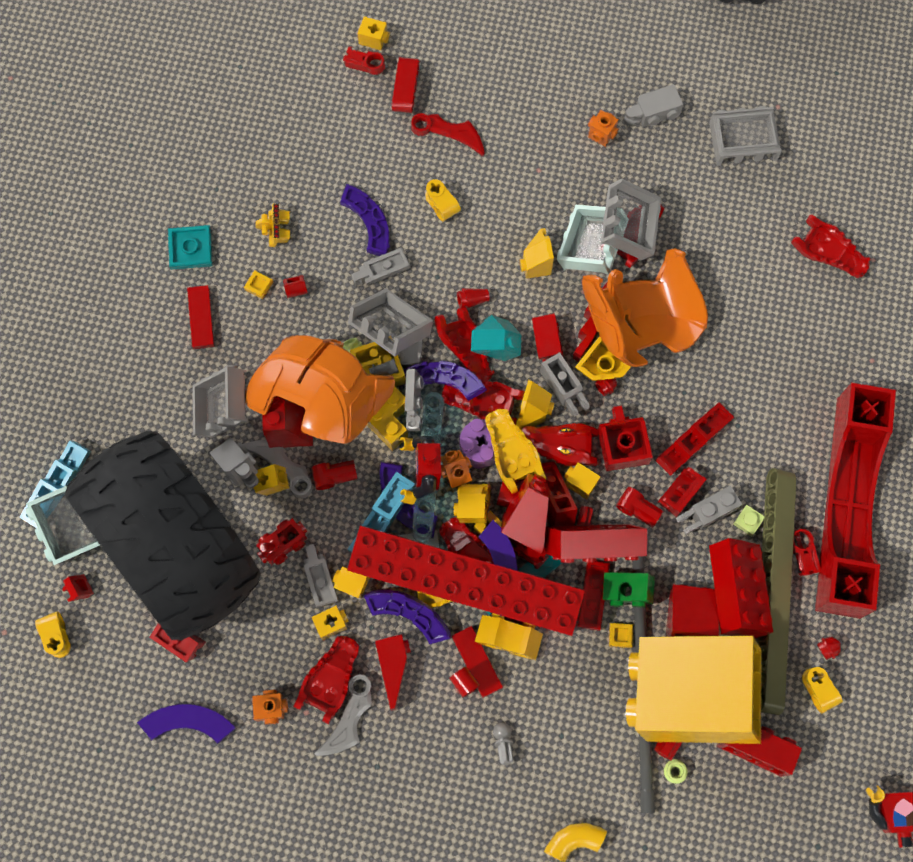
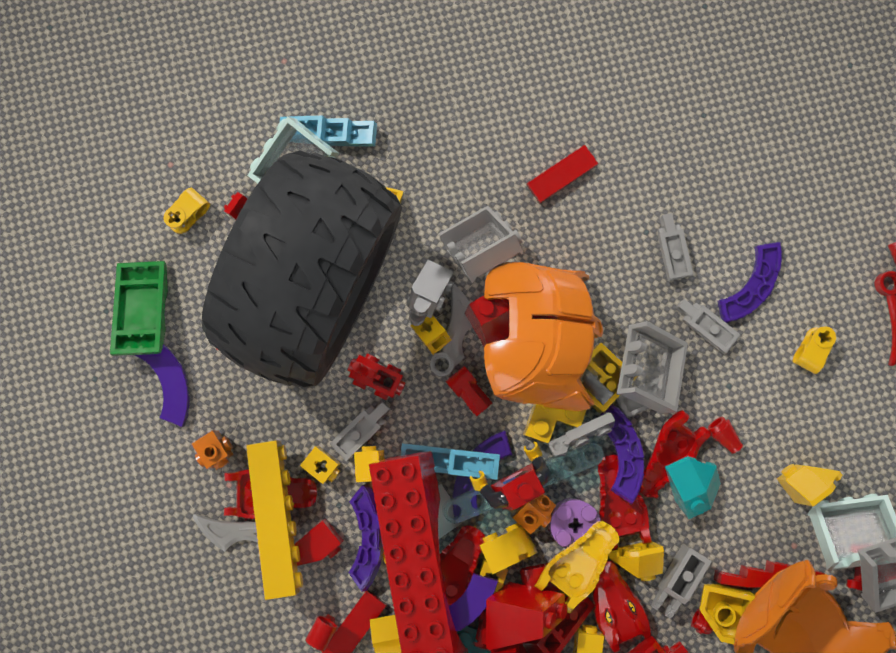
camera: 65 degrees right, 10 degrees up
(113, 714) = (139, 308): none -> green slope
(190, 247) = (628, 123): teal tile -> none
(258, 284) = (625, 212): yellow tile -> none
(271, 222) = (705, 191): yellow hips -> none
(295, 286) = (642, 249): red brick -> none
(308, 263) = (674, 249): none -> light grey hinge
(351, 344) = (609, 339): yellowish green plate -> none
(351, 676) = (273, 519): none -> yellow brick
(547, 336) = (722, 536): red hinge -> none

